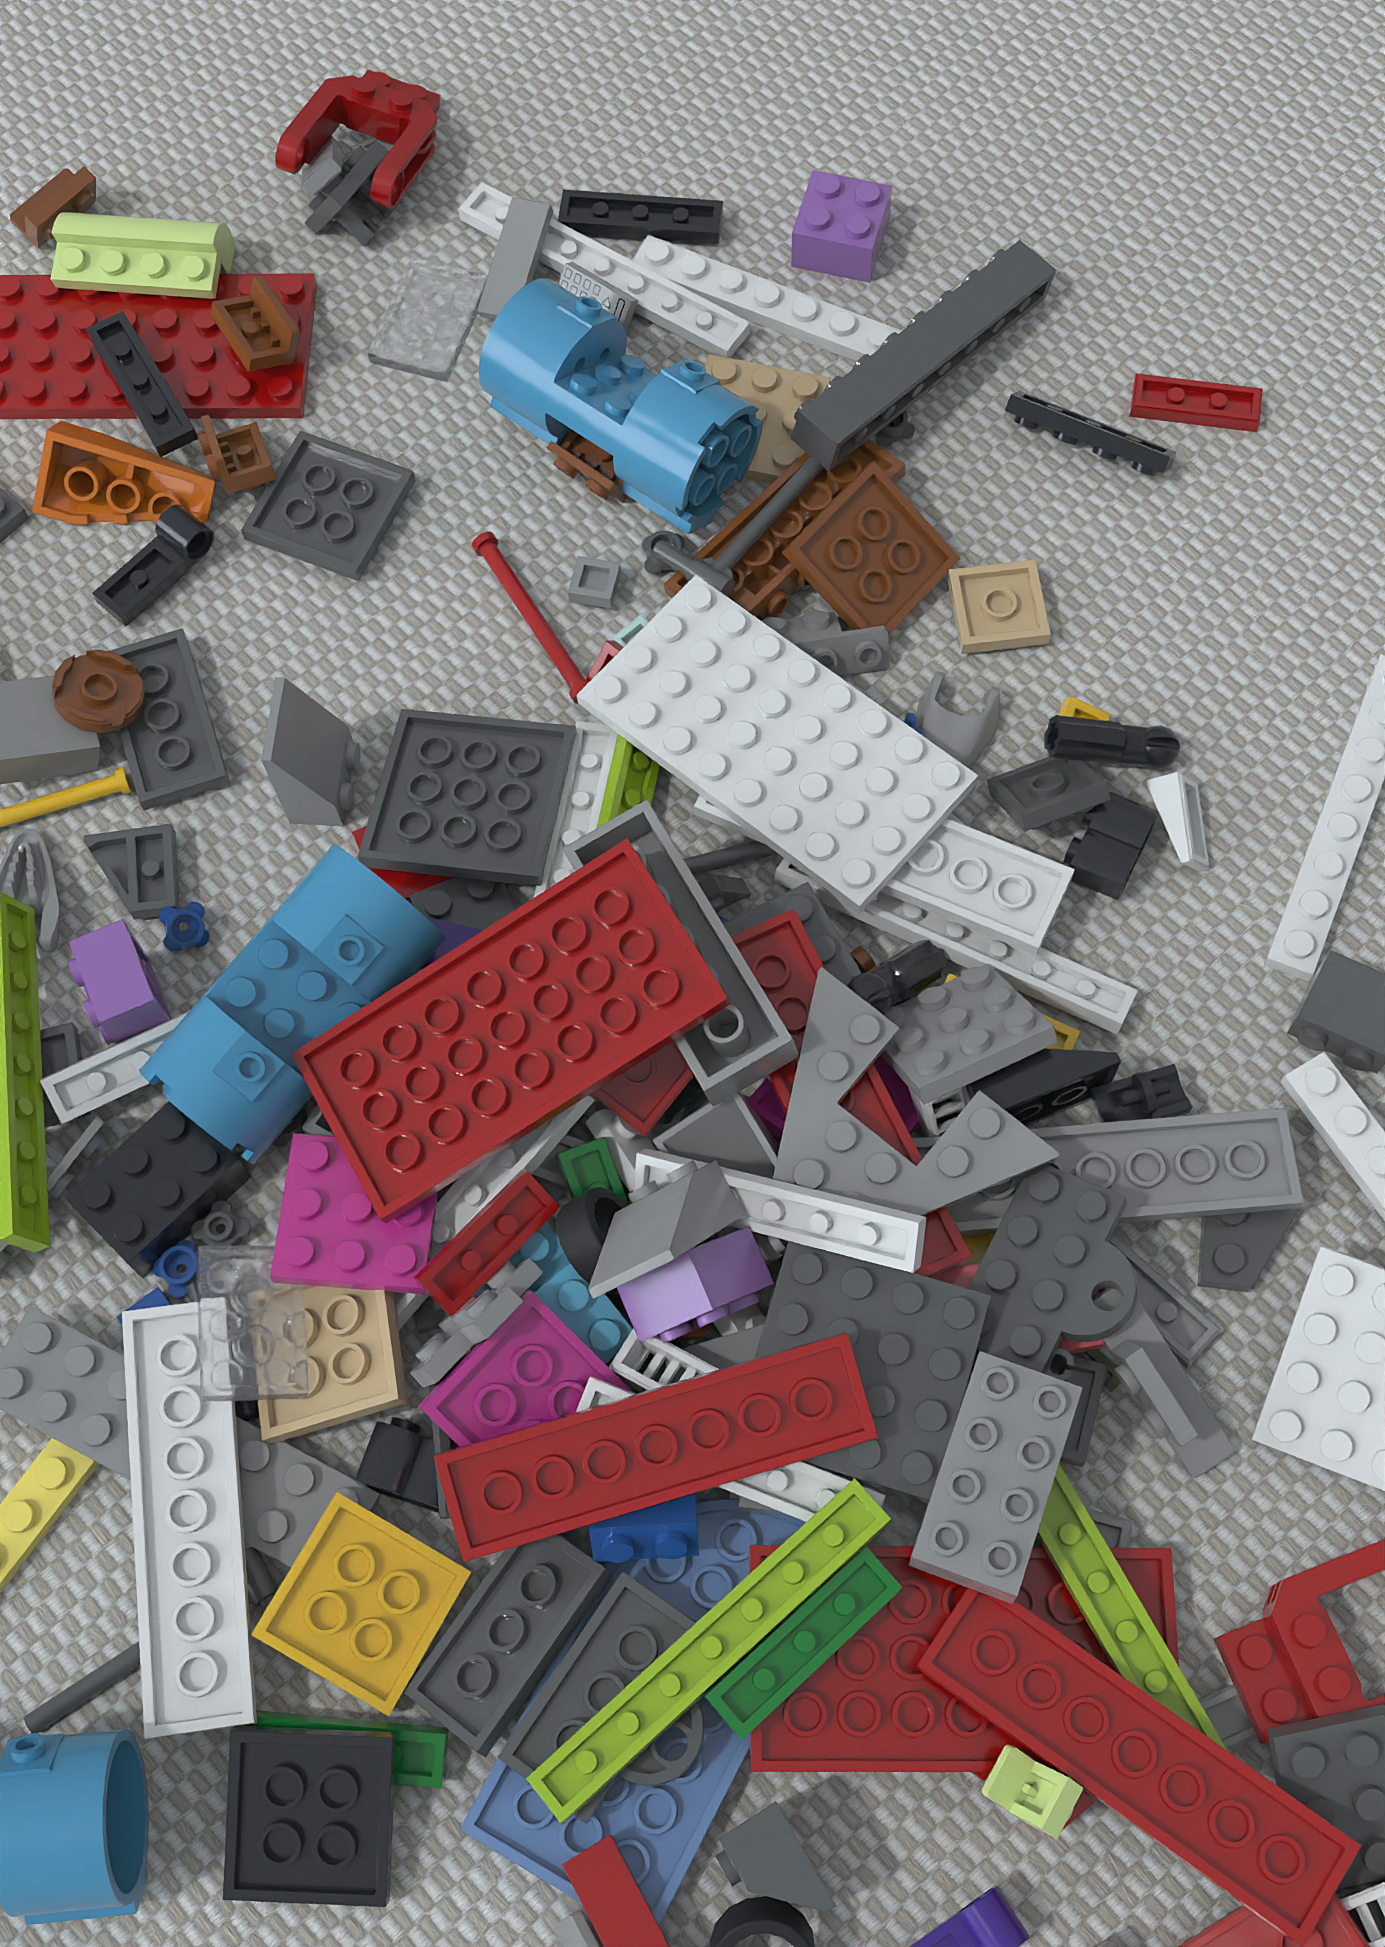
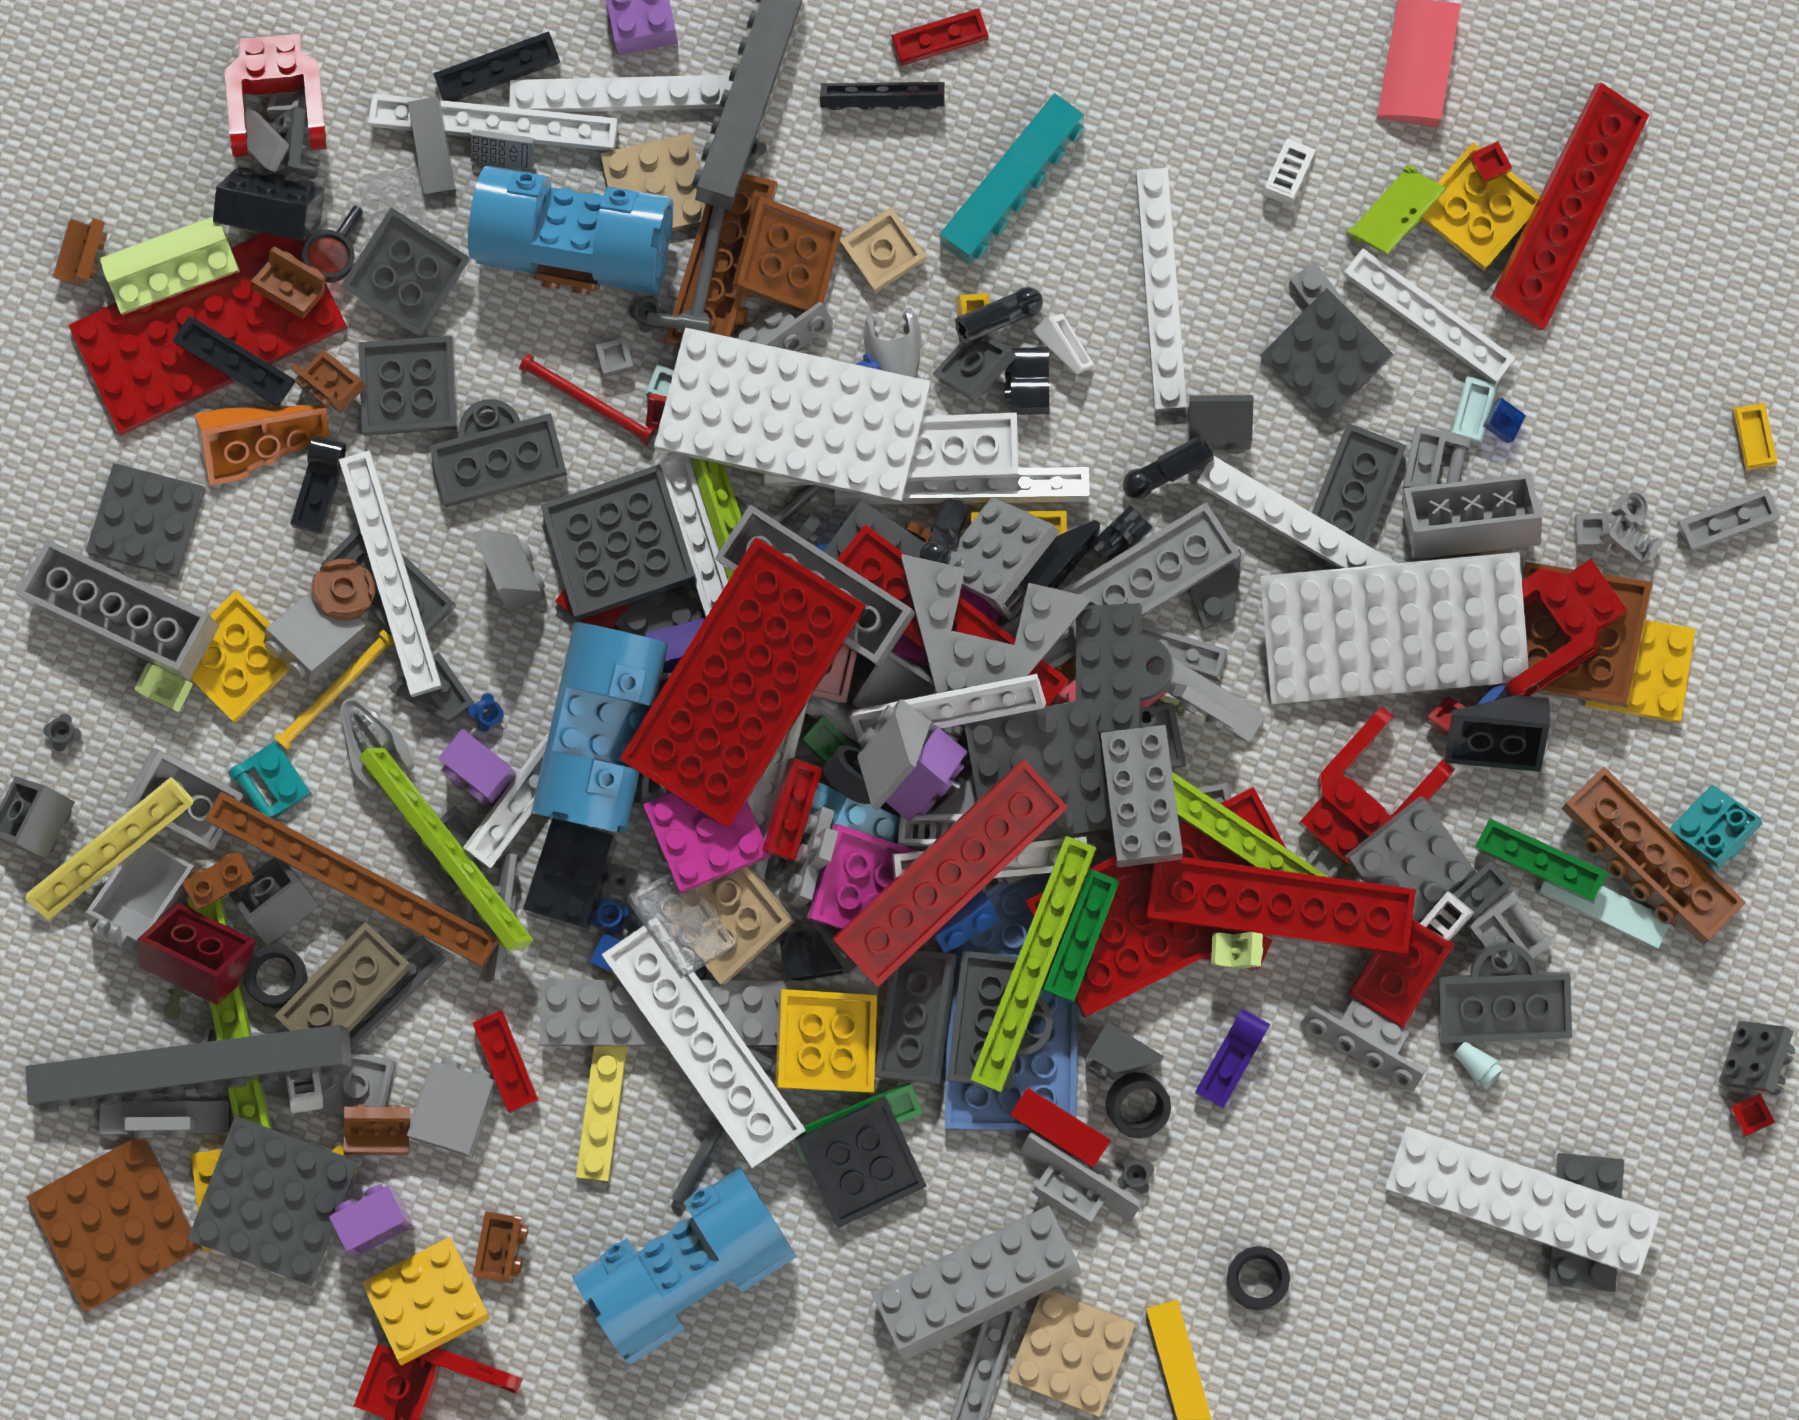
camera: 25 degrees left, 10 degrees up
(165, 705) = (390, 574): none -> white plate
(287, 234) = (268, 204): none -> black brick
(331, 323) = (331, 250): none -> piece
(385, 628) = (496, 454): none -> dark grey plate
(400, 376) = (406, 272): none -> dark grey plate
(1209, 595) = (1012, 179): none -> teal brick
(1251, 1039) = (1168, 467): none -> black piece

